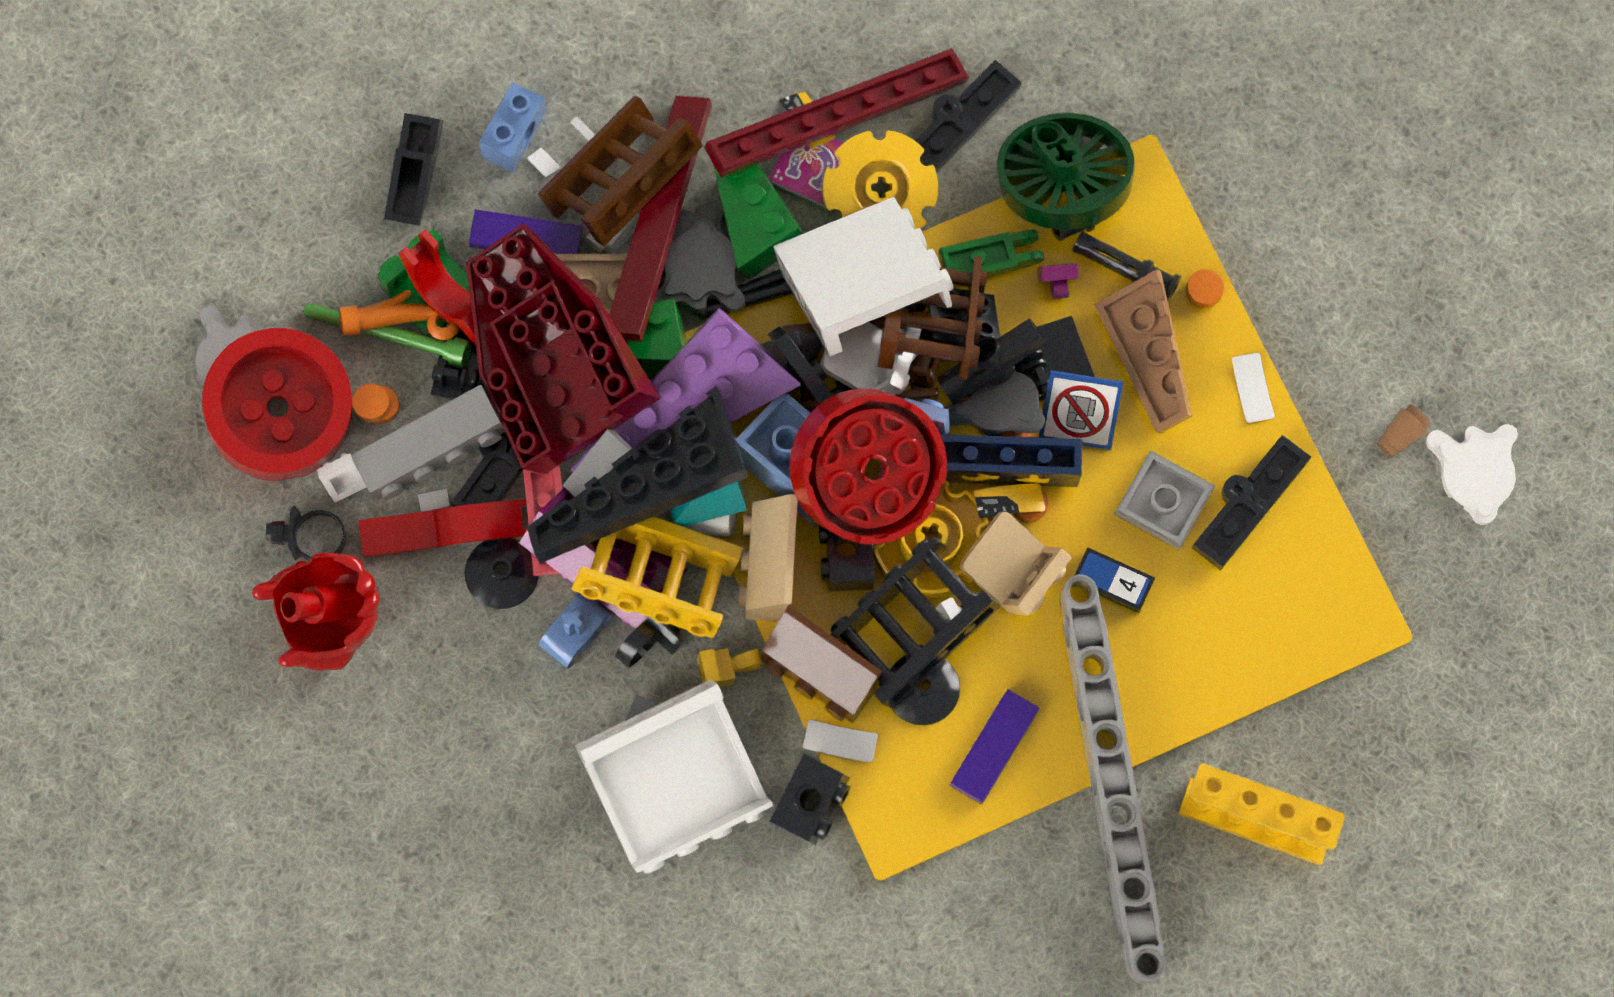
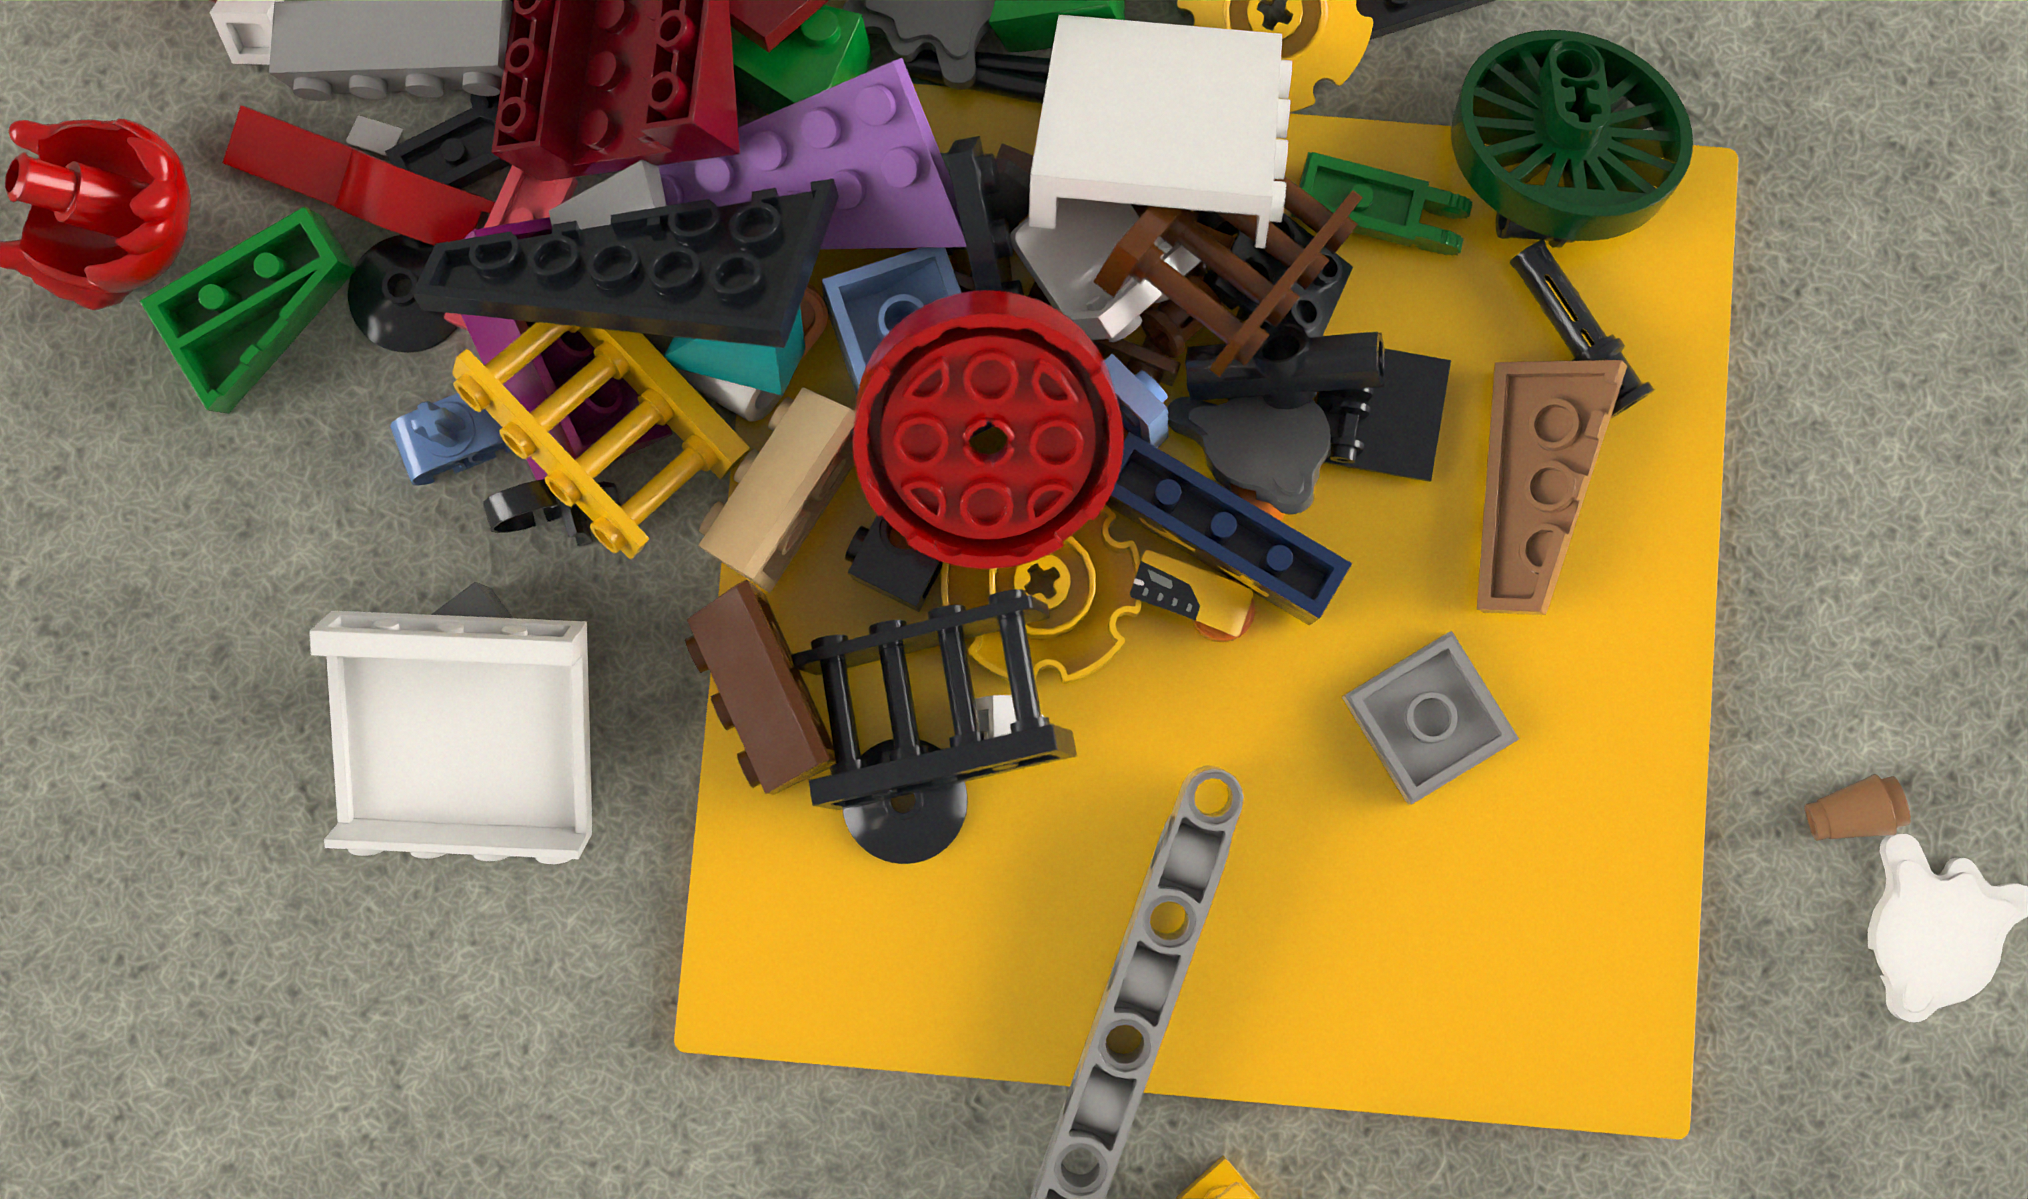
camera: 40 degrees right, 10 degrees up
(279, 532) = (140, 69): black piece -> none
(428, 620) = (248, 305): none -> green wedge
(721, 668) = (629, 605): yellow piece -> none
(791, 809) = (605, 886): black brick -> none
(840, 741) = (739, 812): white sticker -> none
(994, 746) = (957, 950): dark purple tile -> none
(1014, 565) = (1141, 696): tan bracket -> none
(1058, 278) = (1464, 290): magenta tile -> none
(1081, 409) = (1380, 513): piece -> none
(1116, 580) = (1282, 797): tile -> none
(1204, 288) = (1679, 427): orange tile -> none
(1250, 501) = (1559, 793): black hinge -> none
(1252, 387) = (1663, 618): white sticker -> none

